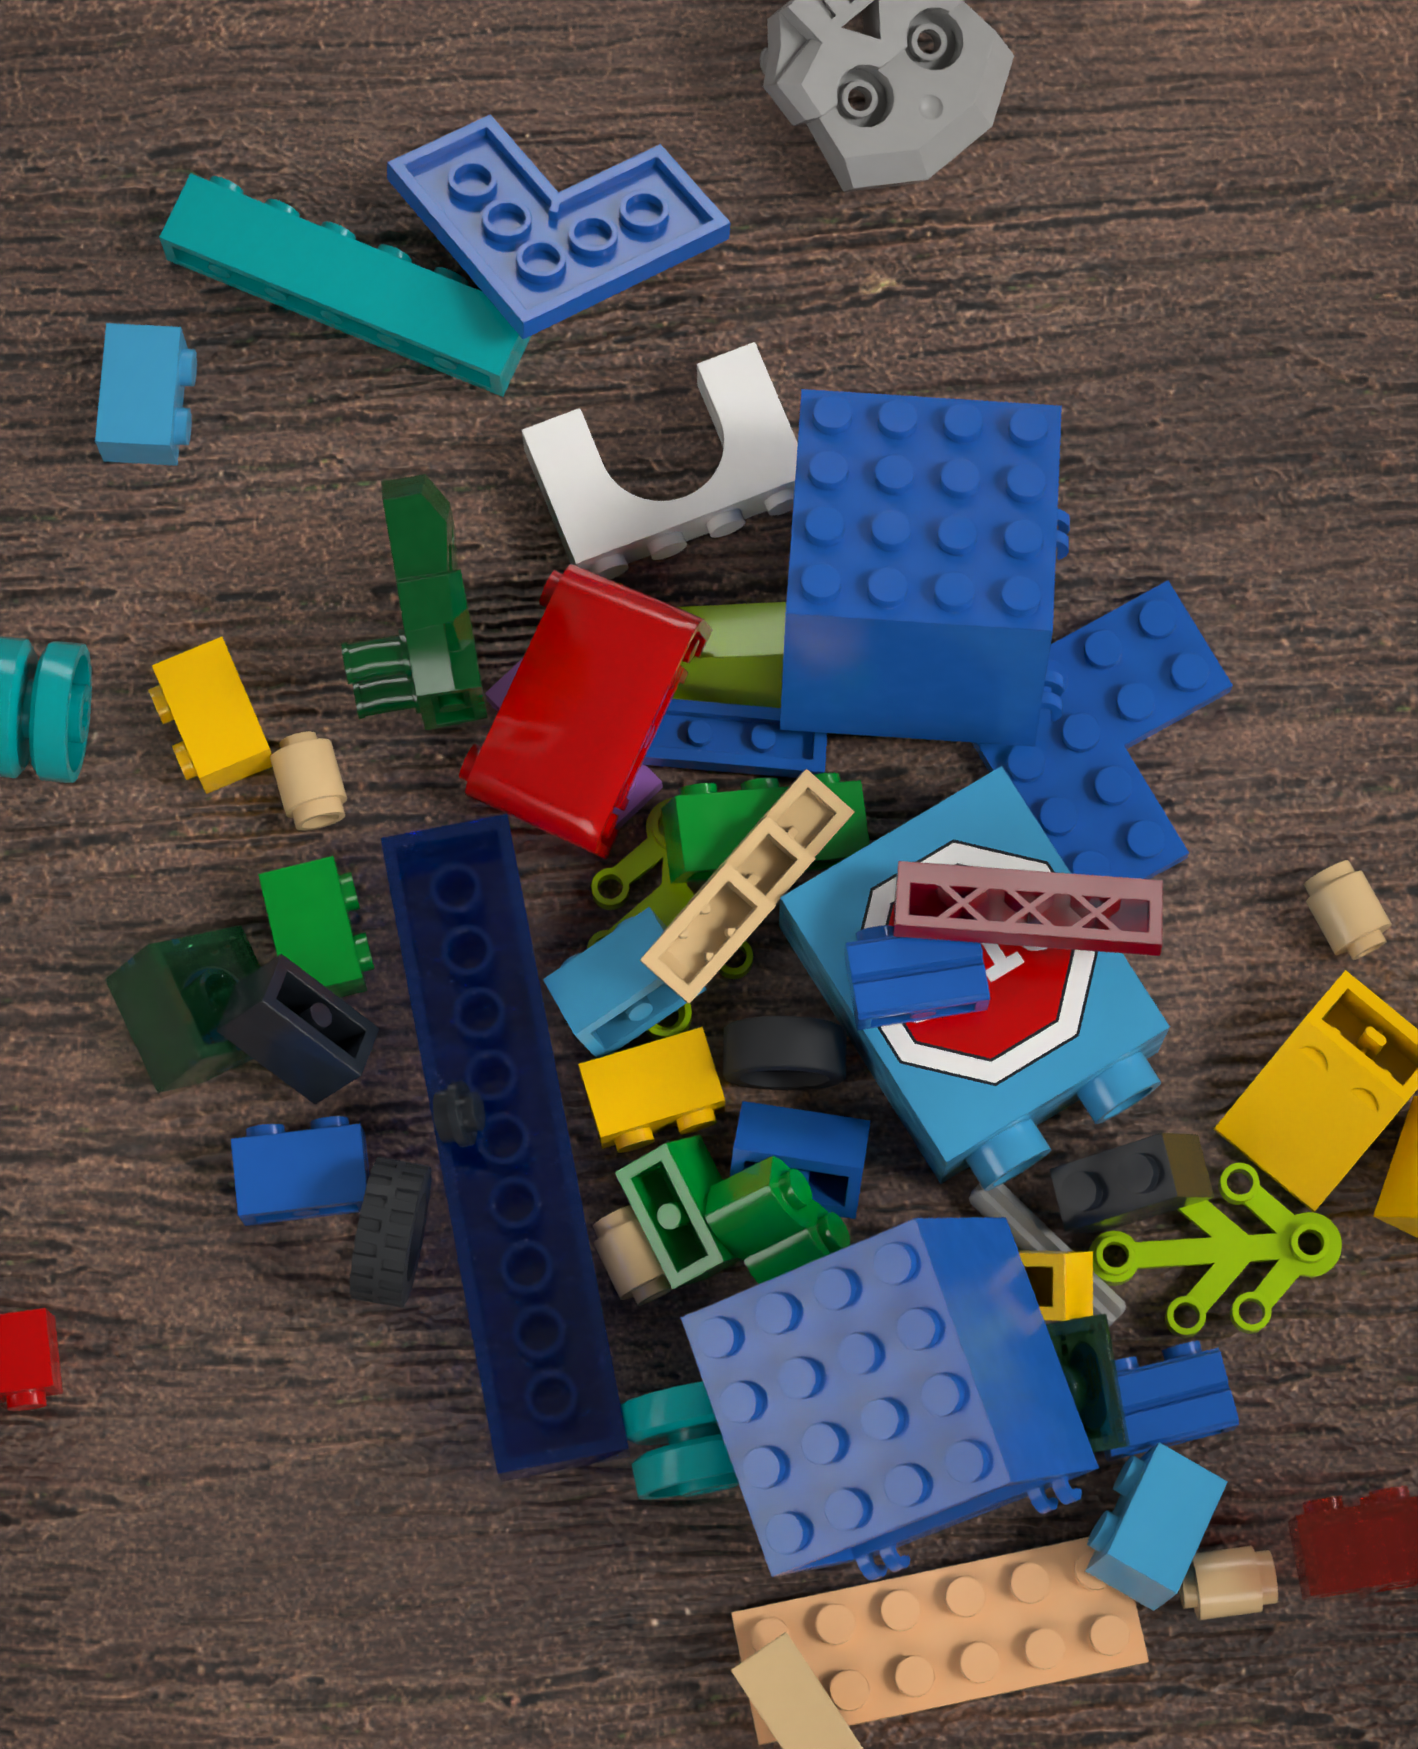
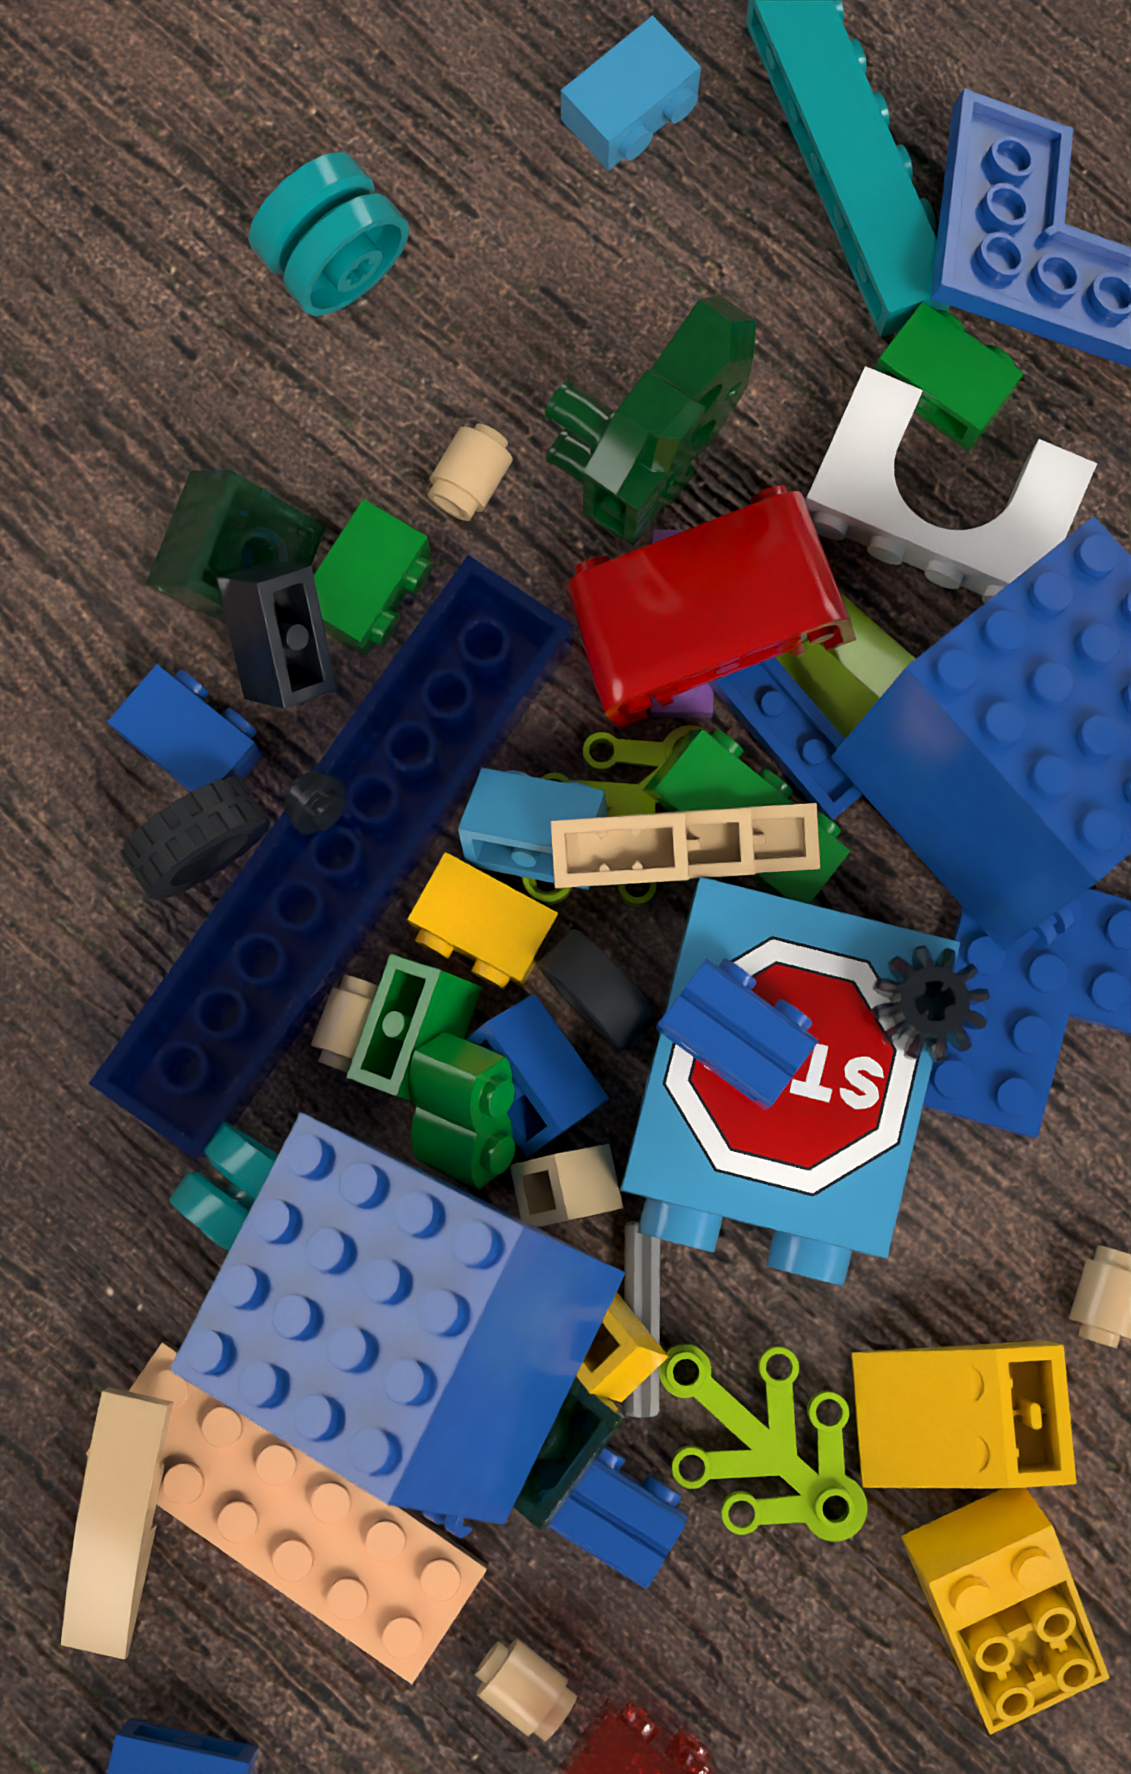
camera: 45 degrees right, 5 degrees up
(212, 715) = (450, 360): yellow brick -> none
(590, 372) = (958, 374): none -> green brick
(903, 1194) = (566, 1186): none -> tan brick
(1028, 908) = (868, 1071): fence -> none
(1050, 828) = (946, 1023): none -> black gear
(1131, 1183) = (747, 1337): black brick -> none
(1154, 1526) = (511, 1598): dark azure brick -> none

